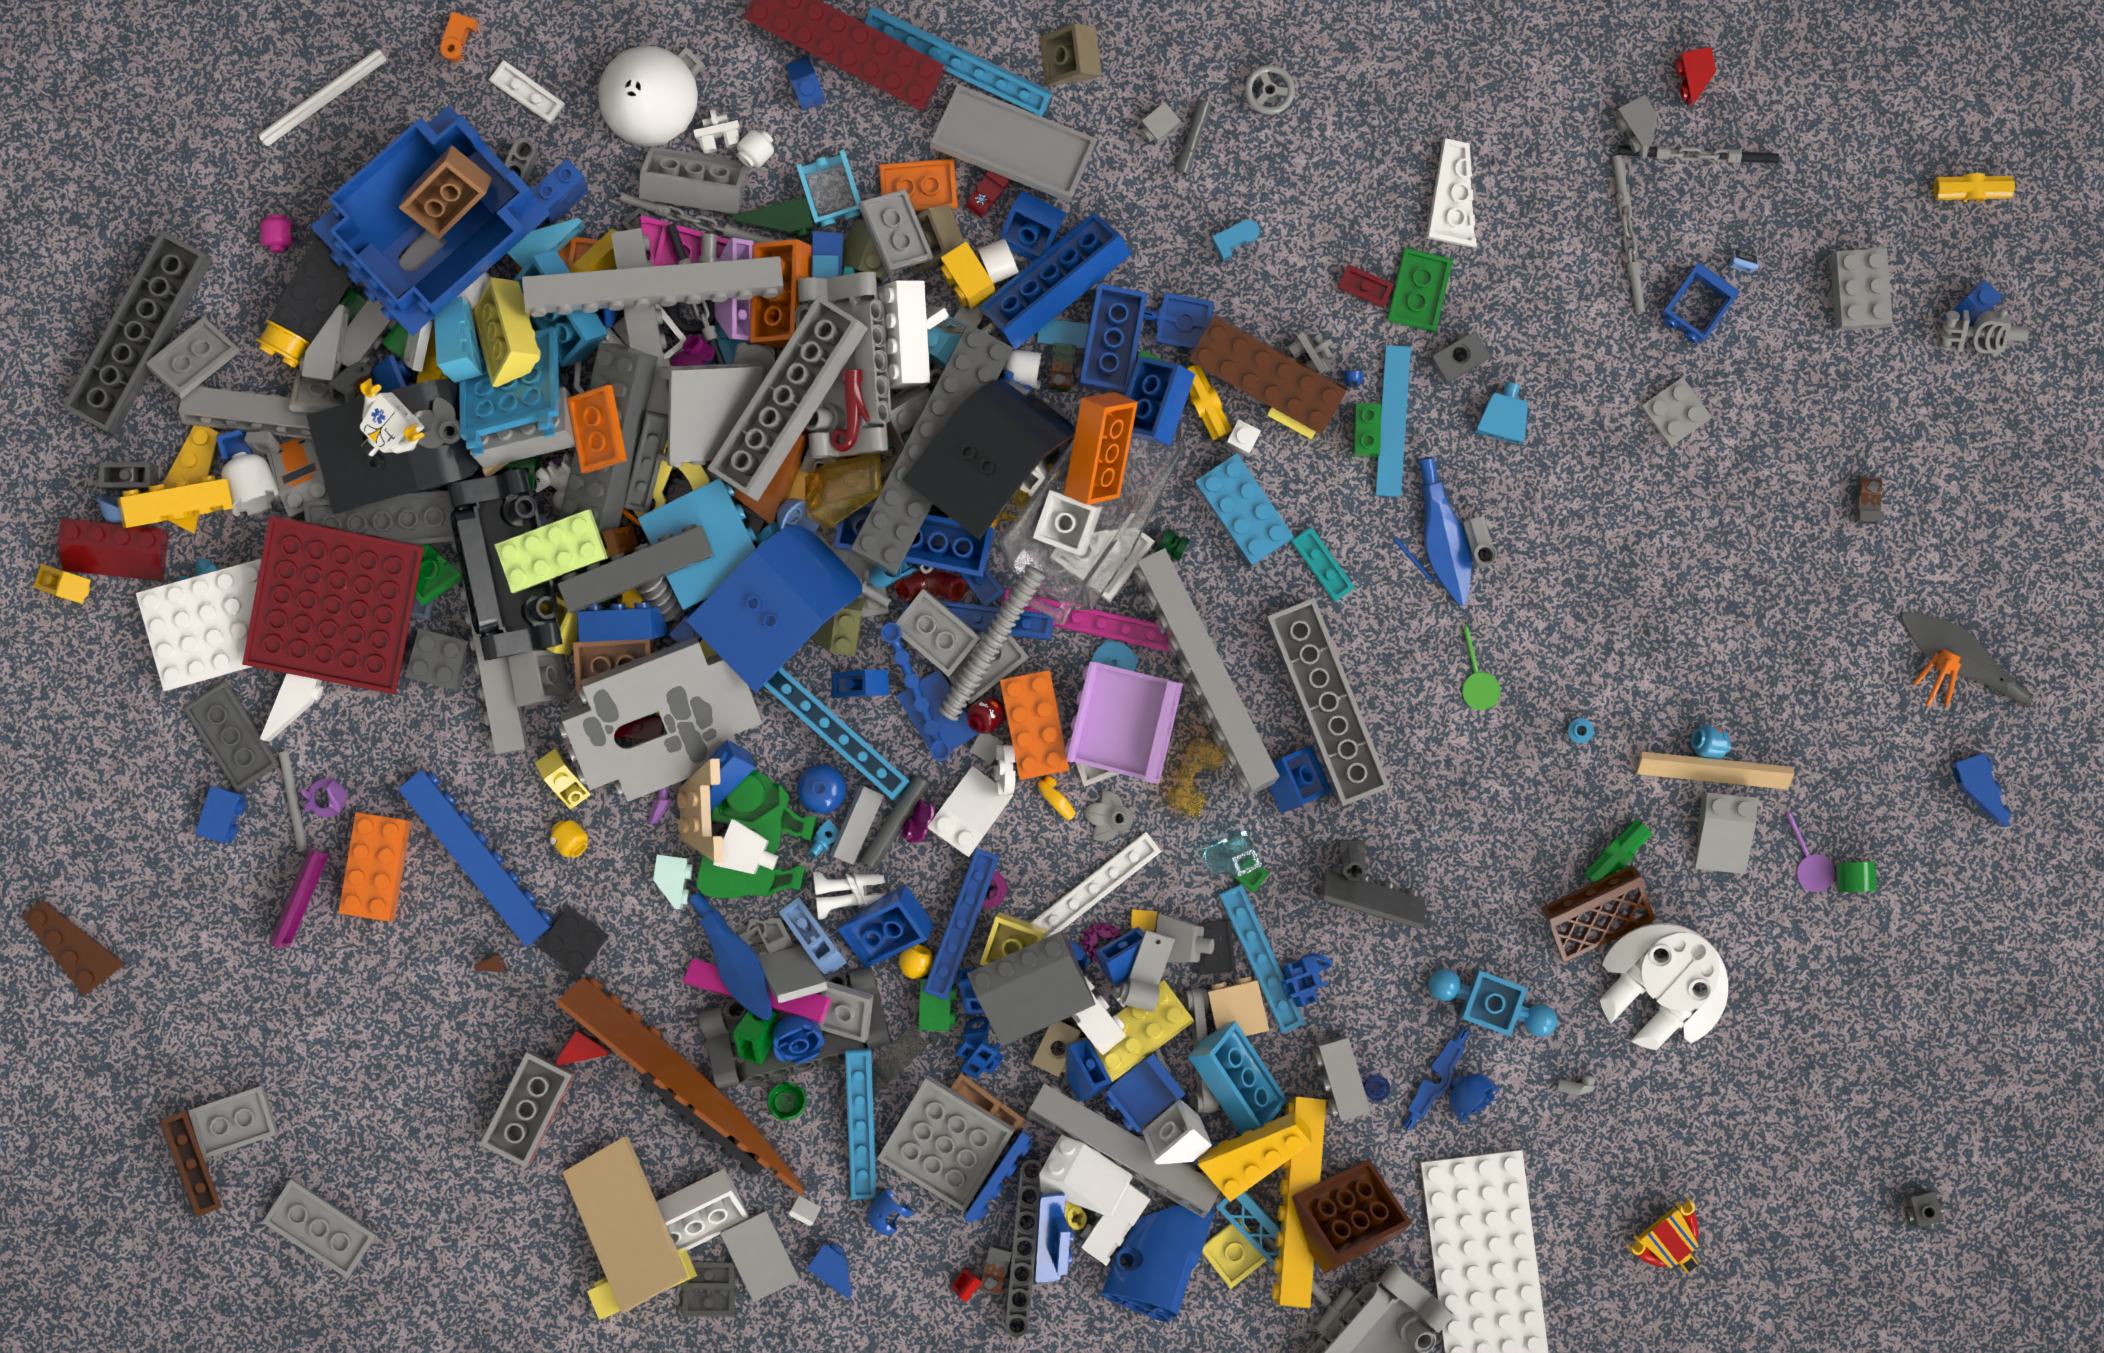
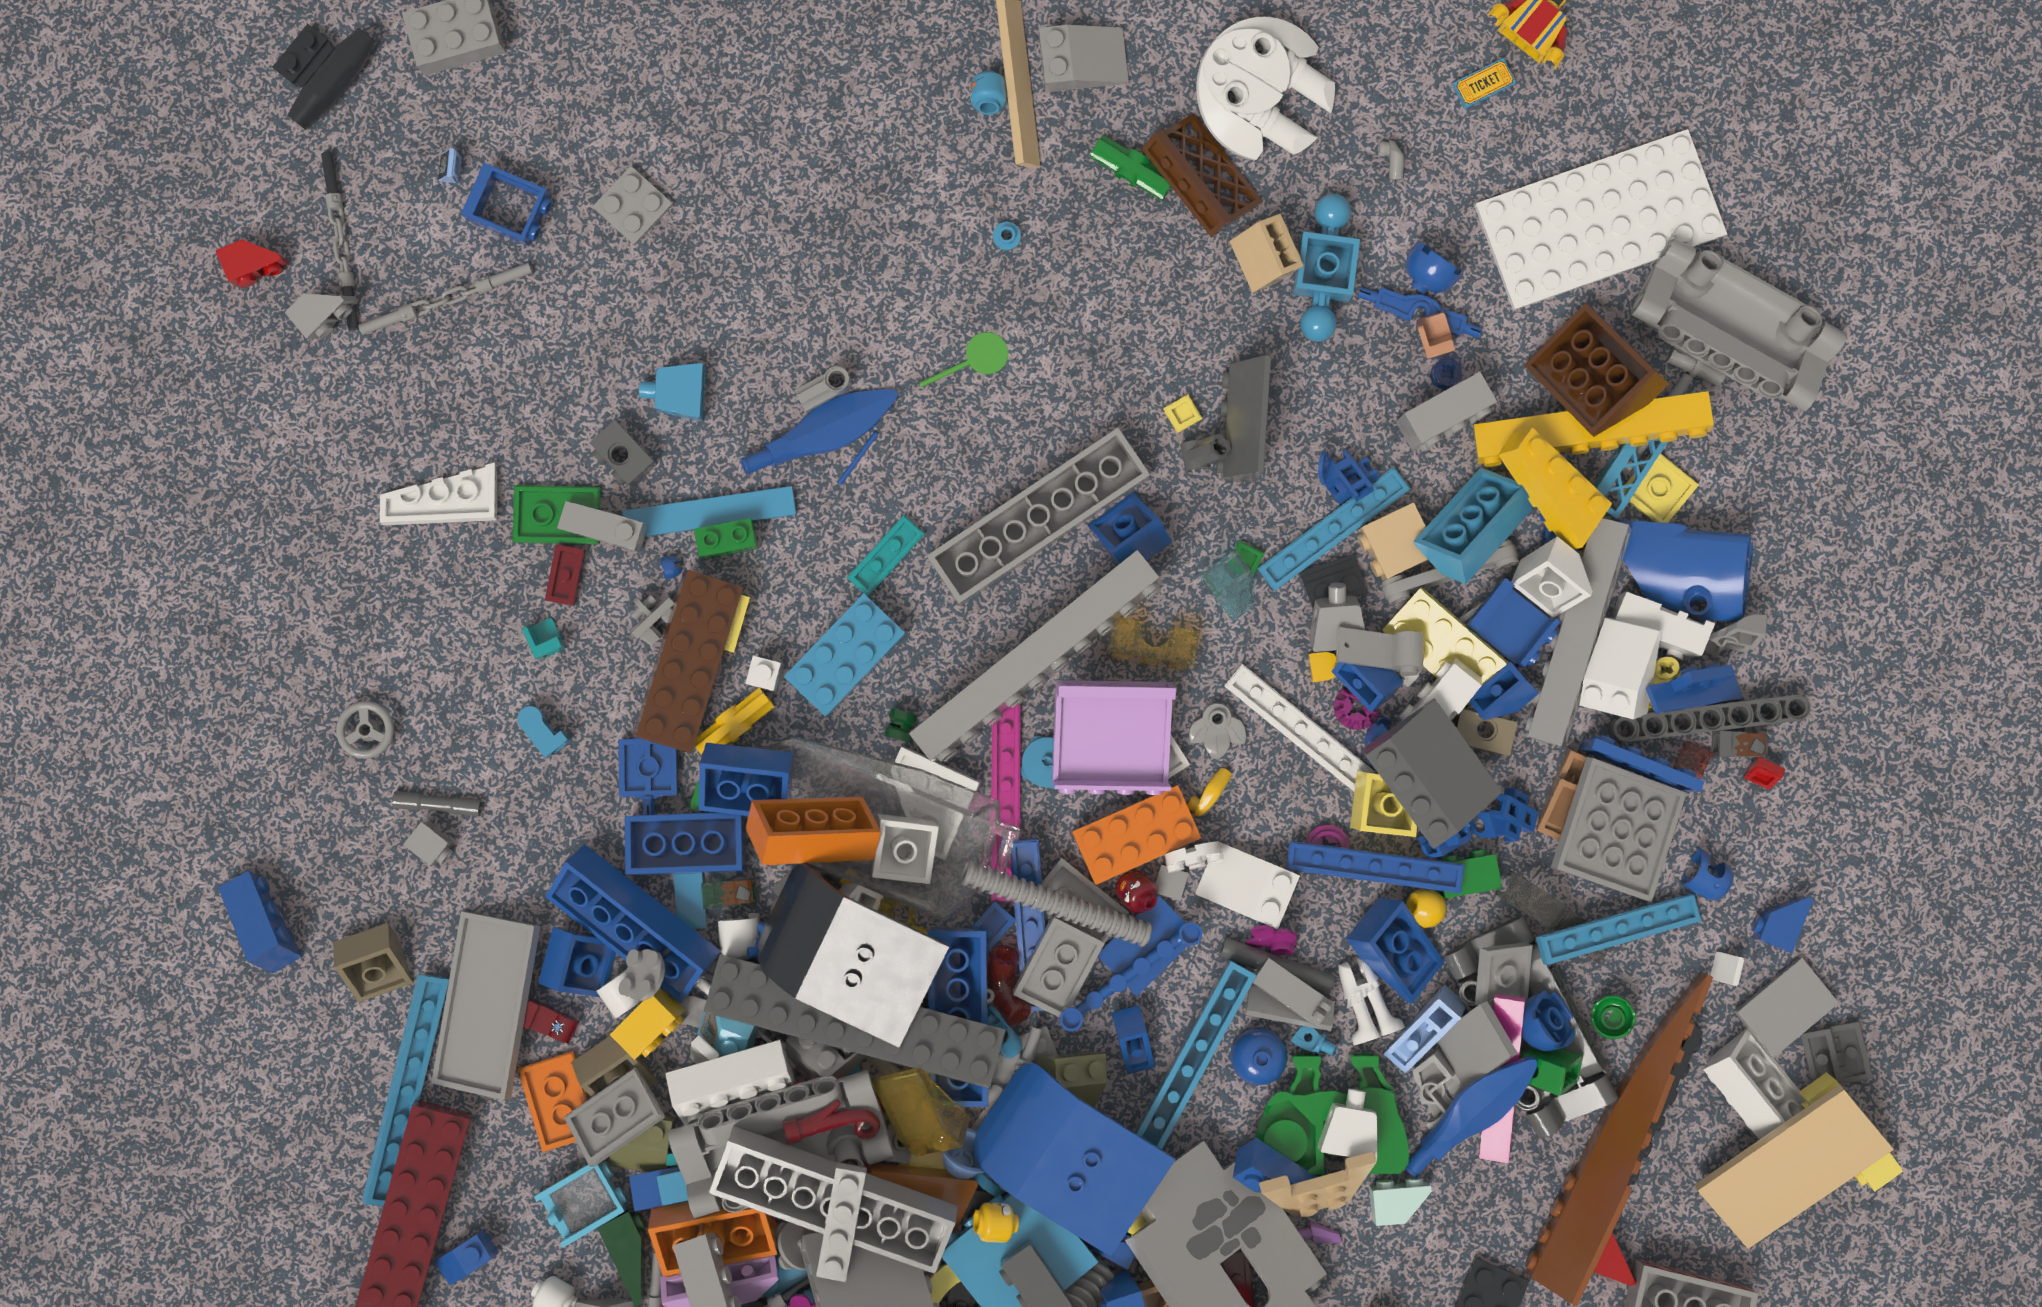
camera: 105 degrees left, 0 degrees up
(737, 529) = (995, 1222): none -> yellow head
(769, 400) = (841, 1222): none -> plate
(870, 828) = (1292, 992): none -> light grey hinge
(991, 1226) = (1693, 758): none -> clear red tile
(1010, 280) = (642, 975): none -> light grey piece
(1091, 1289) = (1738, 636): none -> light grey slope
(1314, 256) = (543, 639): none -> teal panel
(1391, 849) = (1182, 413): none -> light yellow tile
(1400, 327) = (603, 526): none -> light grey slope
(1412, 1085) = (1435, 334): none -> nougat panel
(1515, 952) = (1266, 253): none -> tan brick
(1628, 1183) = (1484, 83): none -> tile
(1851, 169) = (322, 70): none -> black plate

